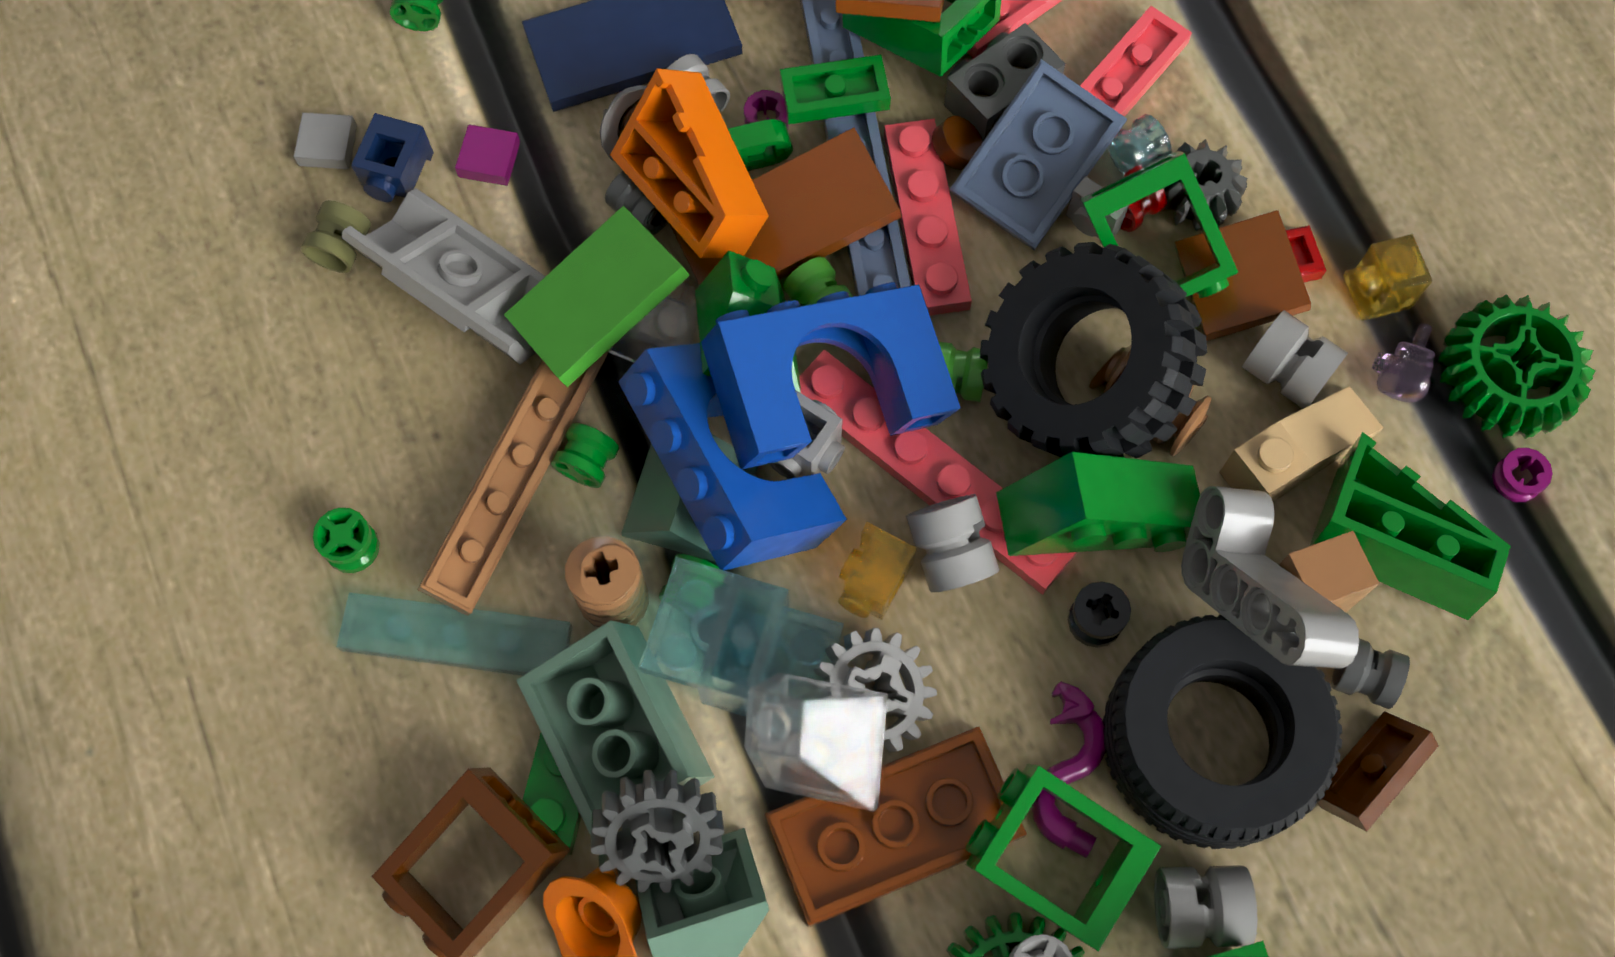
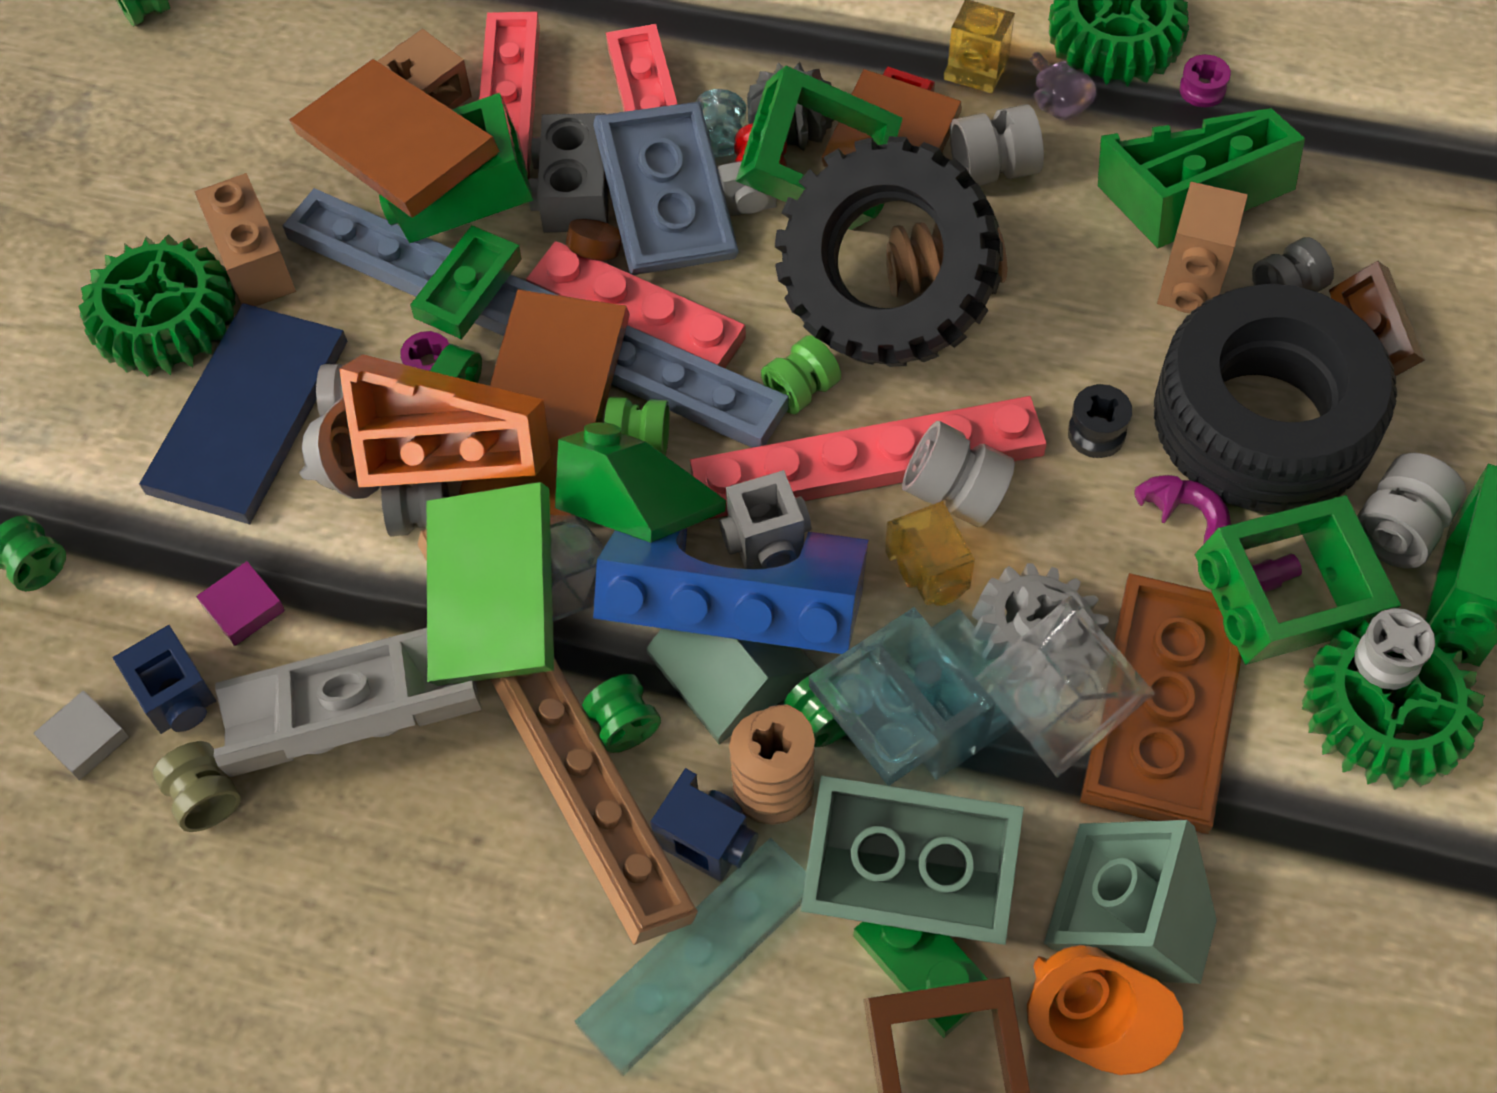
camera: 50 degrees left, 10 degrees down
(338, 530) = (512, 973): green wheel -> none
(539, 571) = (703, 828): none -> dark blue brick
(657, 831) = (1053, 871): dark grey gear -> none
(882, 330) = (698, 489): blue arch -> none
(1099, 506) = (1014, 349): green wedge -> none
(1230, 572) = (1199, 267): light grey beam -> none
(1300, 445) = (1070, 202): tan slope -> none

